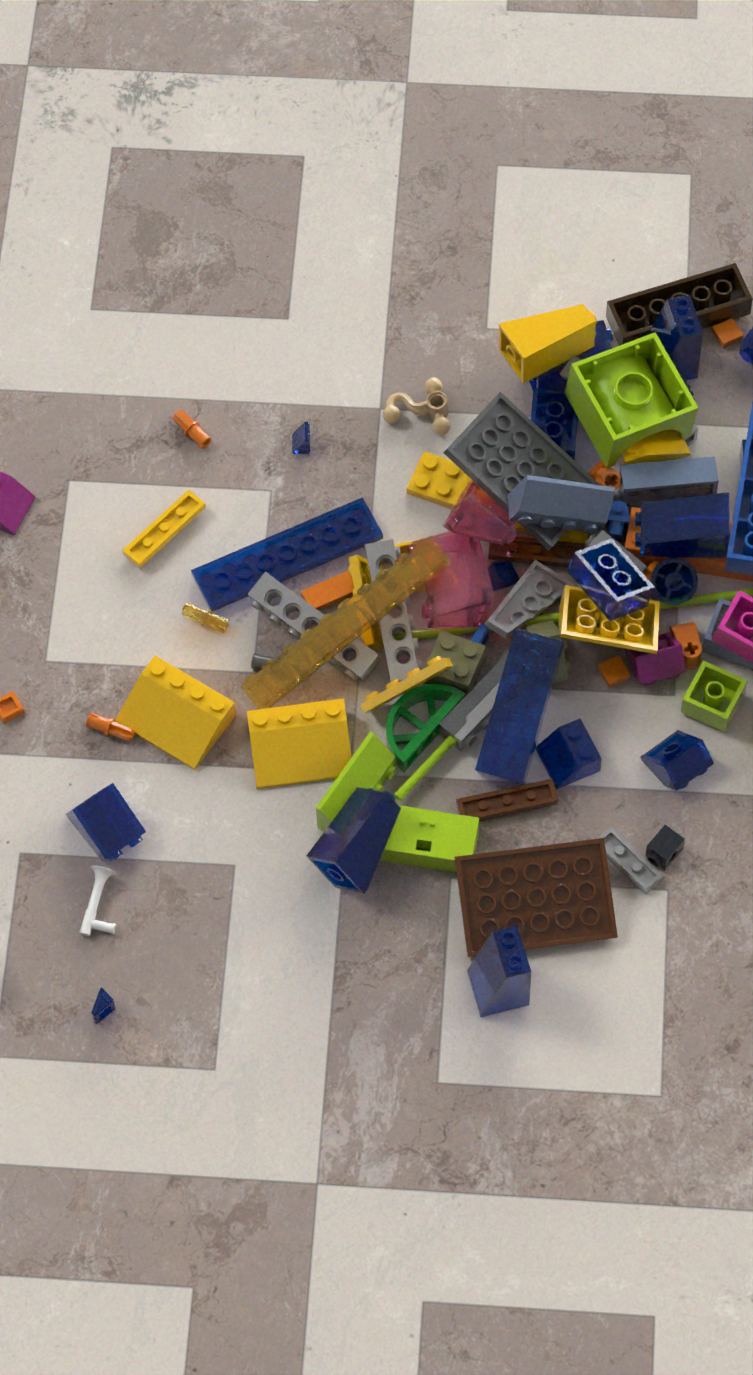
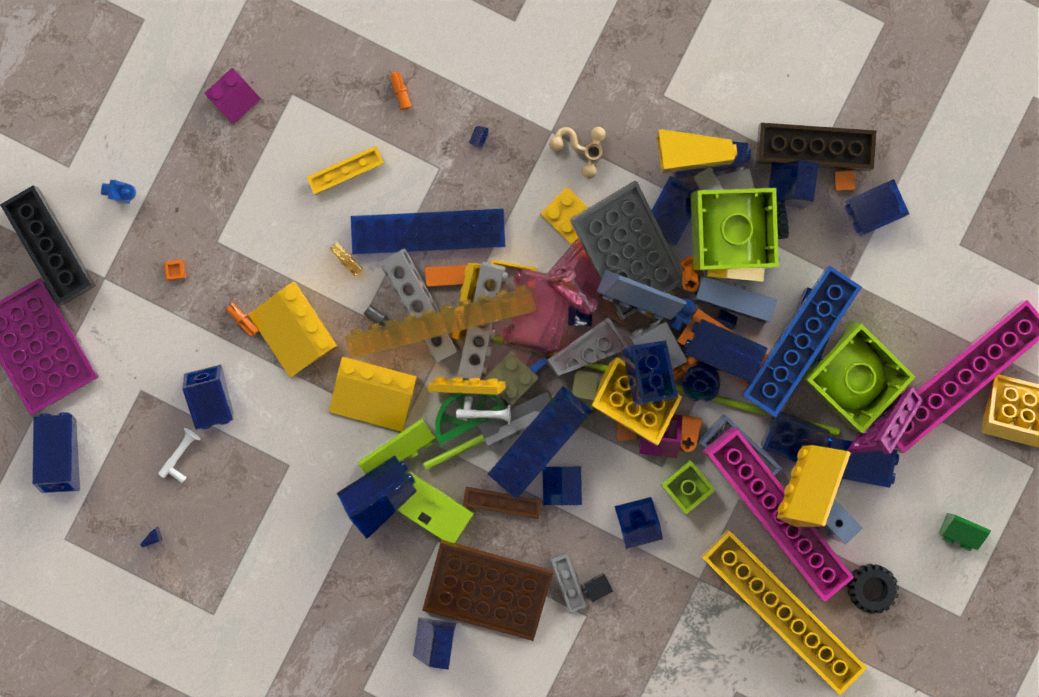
camera: 20 degrees right, 25 degrees up
(419, 712) = (468, 413): none -> white piece

